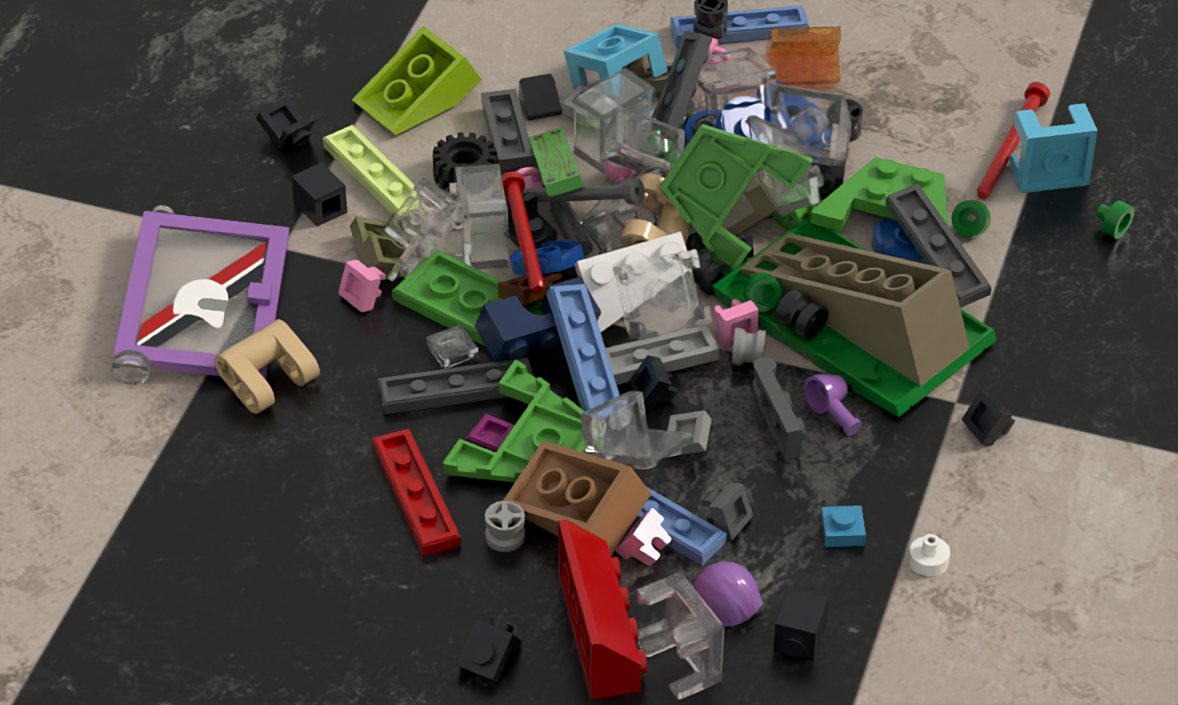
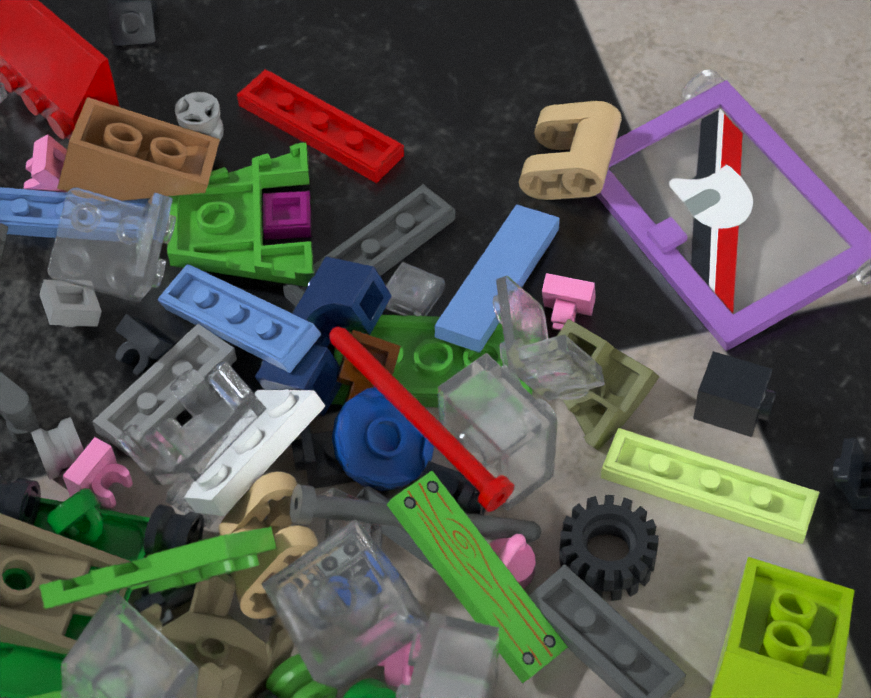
camera: 150 degrees right, 10 degrees up
(391, 318) = (512, 253): none -> medium blue tile

